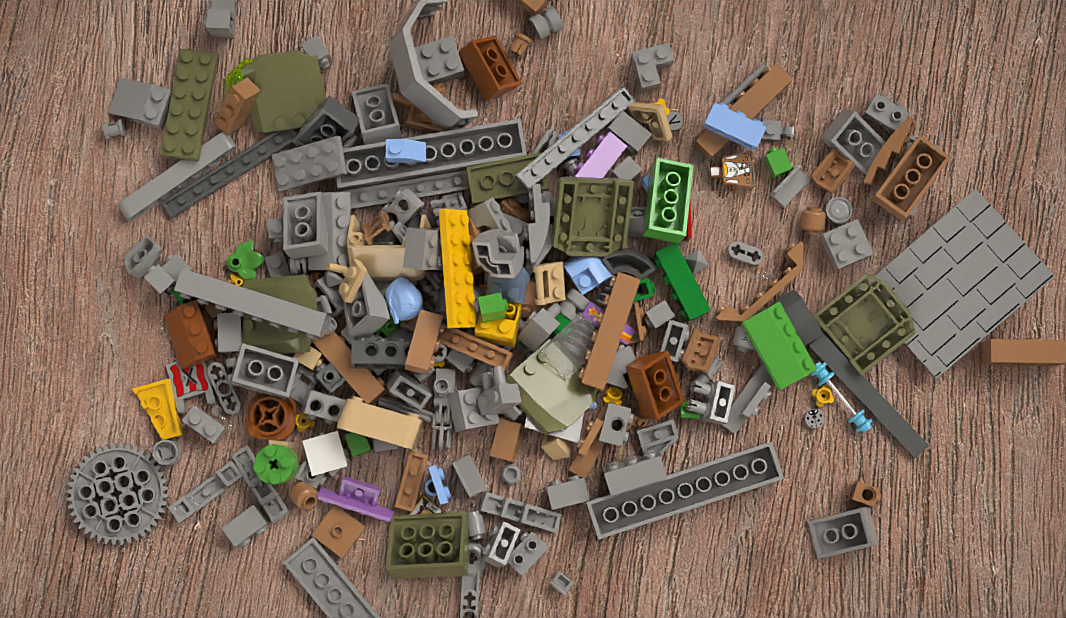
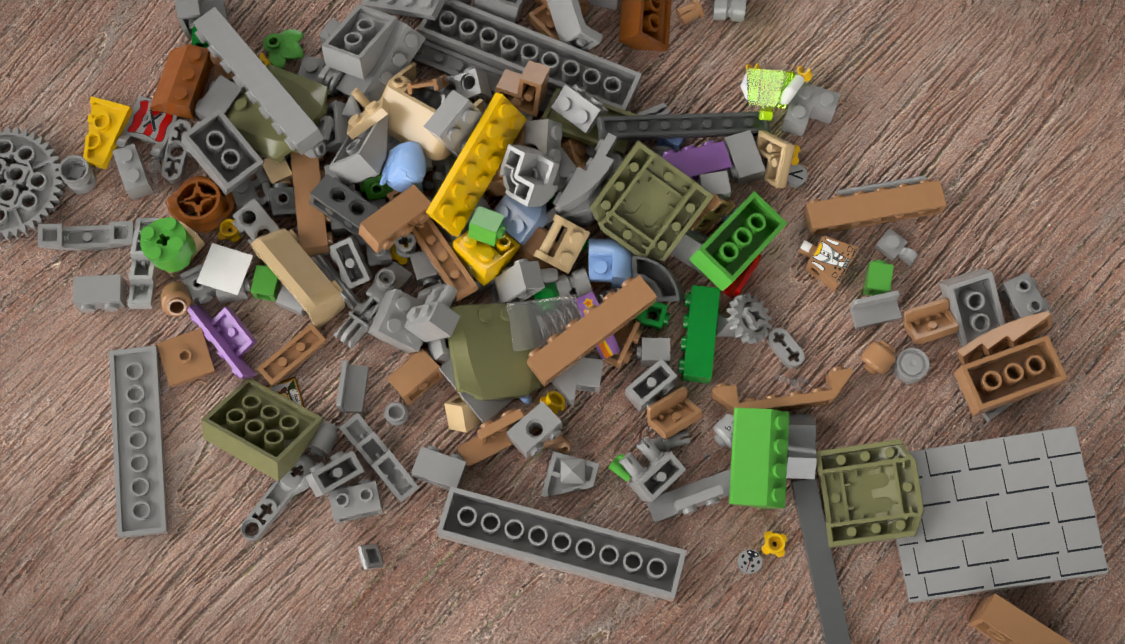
camera: 35 degrees right, 10 degrees down
(405, 151) = (505, 32): light blue slope -> none
(442, 492) = (313, 372): light blue plate -> none
(445, 186) = (525, 90): none -> medium nougat brick
(495, 174) = (579, 107): none -> light grey bracket
(617, 70) = (772, 88): none -> clear neon green torso
(634, 472) = (521, 488): light grey brick -> none
(638, 189) = (711, 216): none -> medium nougat piece
(655, 384) = (603, 414): dark orange slope -> none
(659, 436) = (572, 471): none -> light grey slope
(709, 250) = (749, 318): none -> light grey gear
(735, 126) = (855, 211): light blue brick -> none
(846, 245) = (898, 404): light grey brick -> none
(862, 423) = (797, 589): medium azure axle -> none

